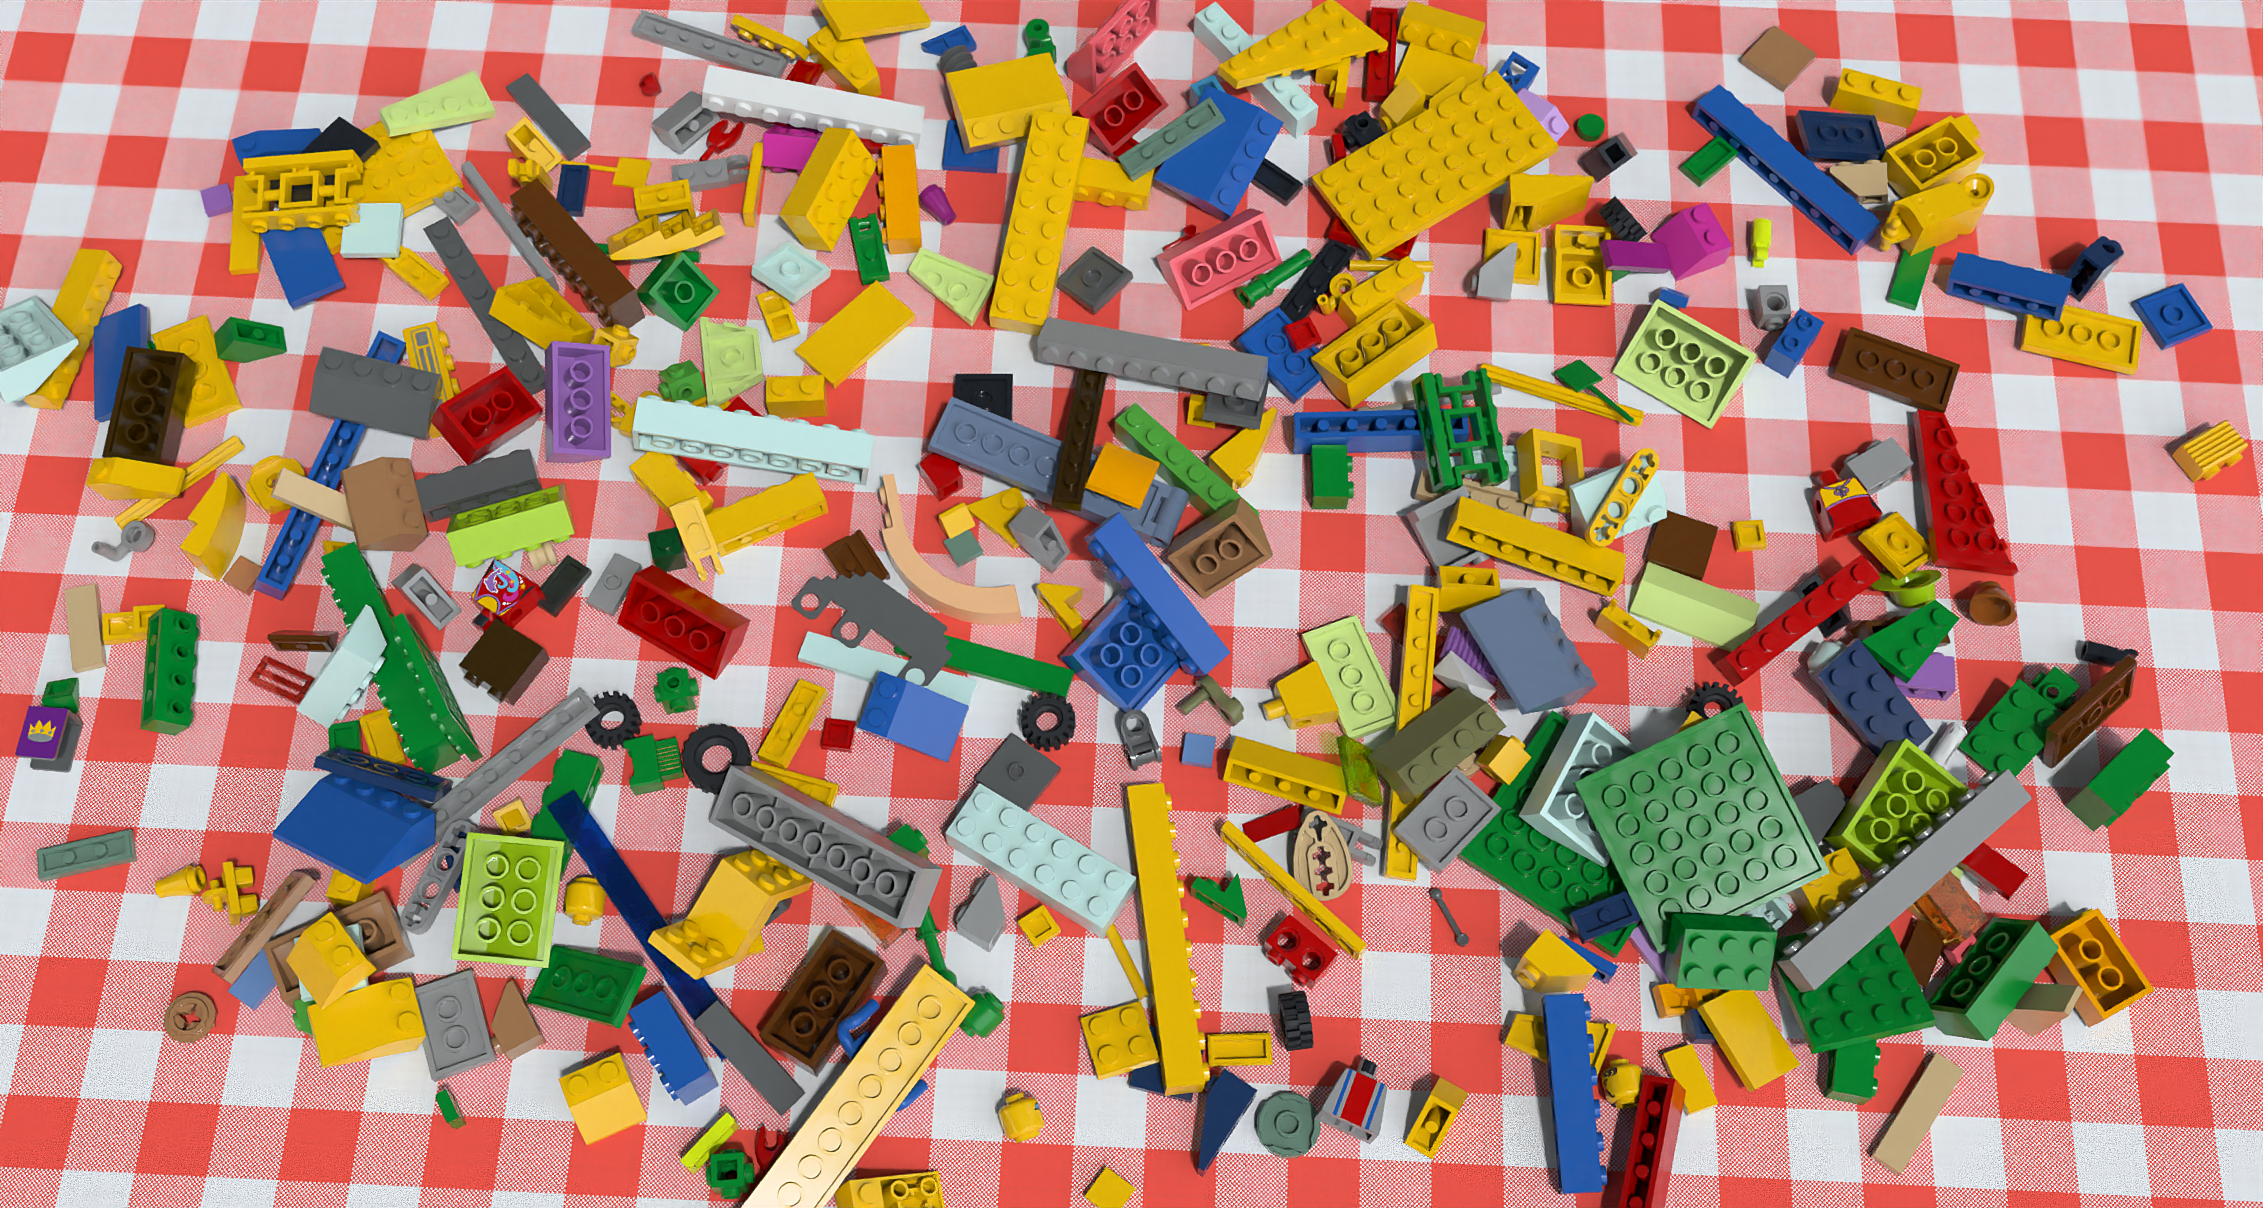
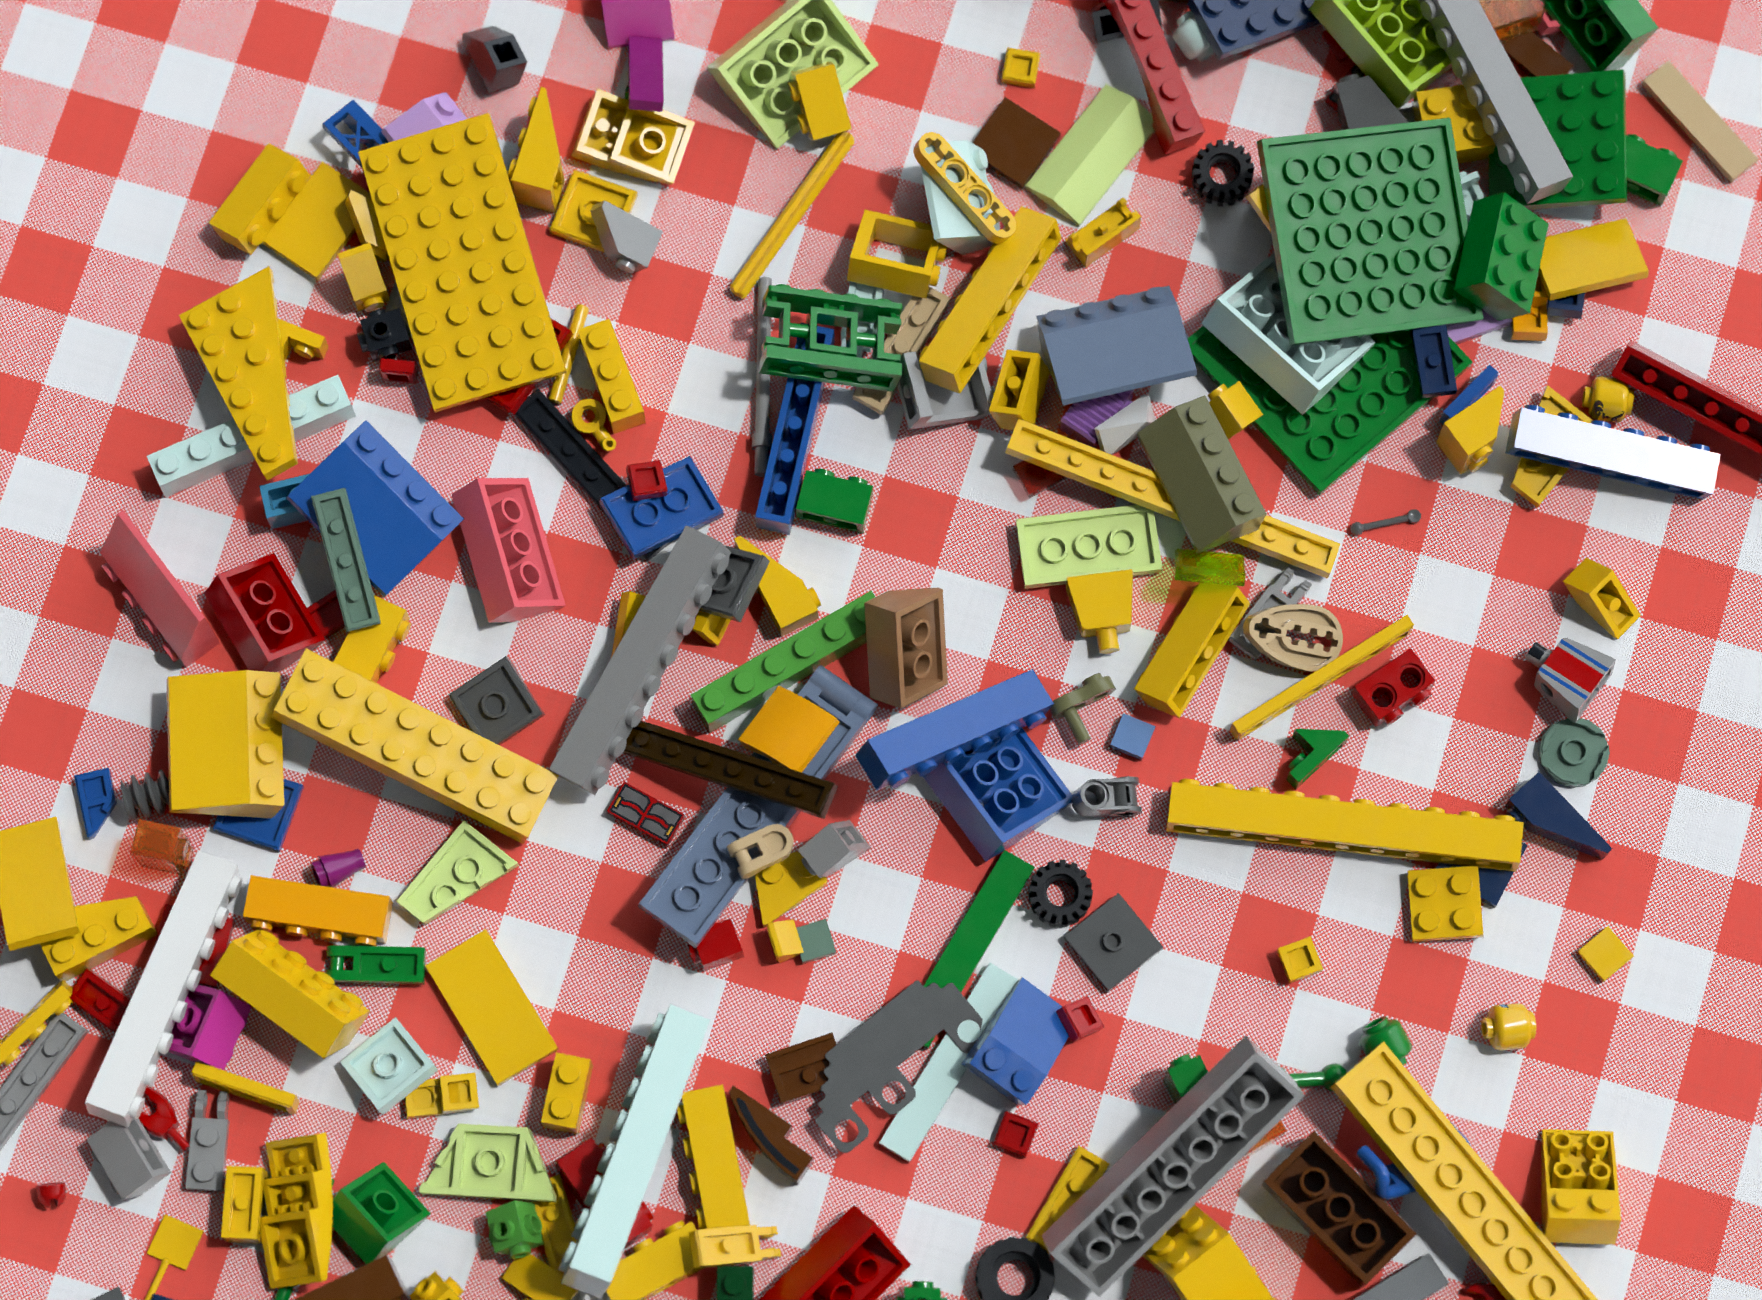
camera: 75 degrees left, 10 degrees up
(792, 724) = (993, 1182): yellow plate -> none
(795, 548) = (770, 1136): none -> reddish brown slope
(920, 80) = (161, 847): none -> clear orange brick
(945, 761) = (1080, 1019): none -> red tile
(947, 596) = (850, 994): light nougat arch -> none
(984, 918) = (1275, 1013): light grey slope -> none
(987, 392) = (626, 870): black plate -> none
(1023, 481) = (773, 843): none -> tan plate
(1036, 402) = (646, 814): none -> tile
(1039, 39) = (125, 690): green leg -> none
(1041, 860) = (1226, 939): light aqua brick -> none
(1058, 601) = (917, 849): yellow slope -> none
(1127, 963) = (1349, 878): yellow bar -> none
(1189, 232) = (466, 583): red hand -> none
(1240, 1049) = (1483, 780): yellow tile -> none
(1264, 284) = (557, 505): green pin -> none
(1272, 824) = (1240, 679): red sticker -> none
(1276, 182) = (422, 449): black tile -> none
(1295, 1020) = (1472, 712): black tyre -> none
(1375, 352) = (688, 404): yellow slope -> none
(1382, 64) = (290, 284): red plate -> none
(1447, 820) = (1291, 491): light grey plate -> none
(1581, 376) = (779, 185): green piece -> none
(1590, 127) = (441, 68): green tile -> none
(1622, 221) = (594, 73): black tyre -> none
(1660, 385) = (820, 101): none -> yellow brick
(1674, 298) = (704, 49): blue plate -> none
(1688, 1071) = (1615, 332): yellow tile -> none

